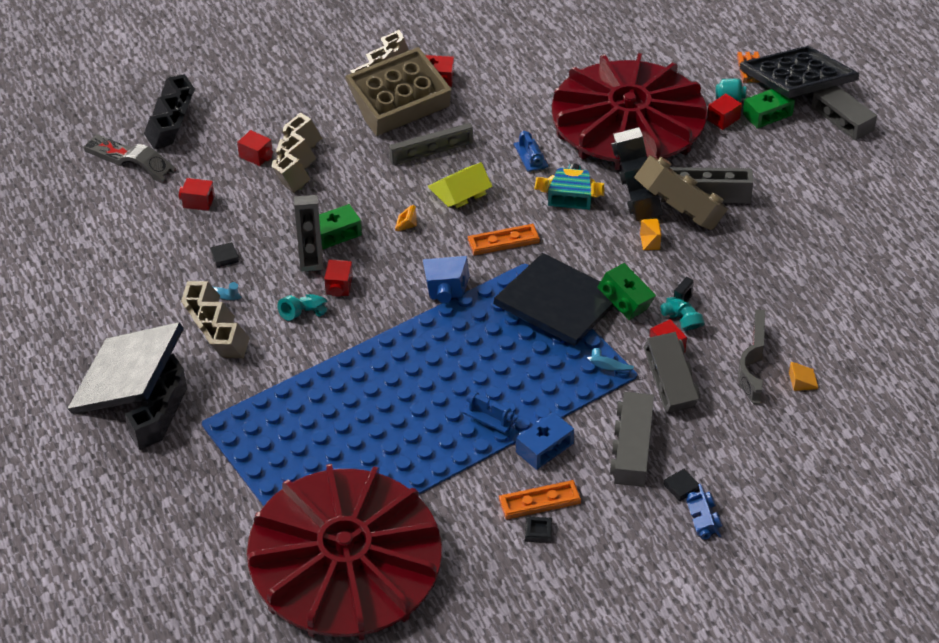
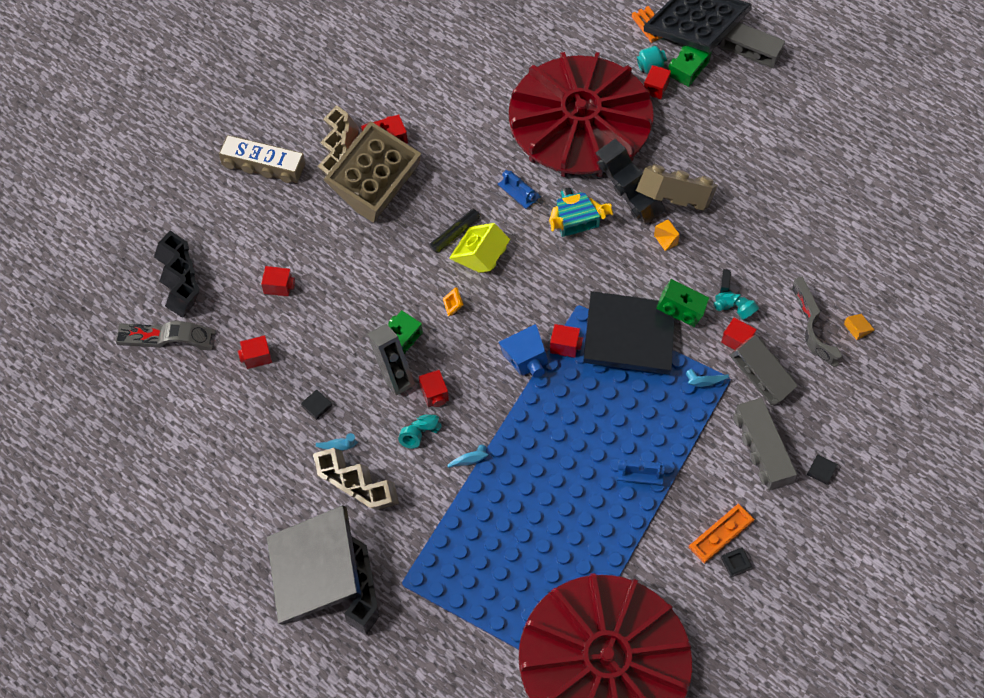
camera: 25 degrees left, 15 degrees up
(295, 152) = (318, 272): dark tan brick -> none
(308, 54) = (262, 159): none -> brick
(334, 345) = (470, 458): none -> dark azure bar
(431, 144) = (430, 214): dark grey tile -> none
(446, 165) = (454, 230): none -> black axle
(487, 280) = (565, 340): none -> red brick
(503, 239) = (546, 288): orange tile -> none
(544, 440) = (689, 487): blue brick -> none
(709, 521) = (861, 496): blue hinge -> none
(731, 184) = (699, 160): dark grey brick -> none

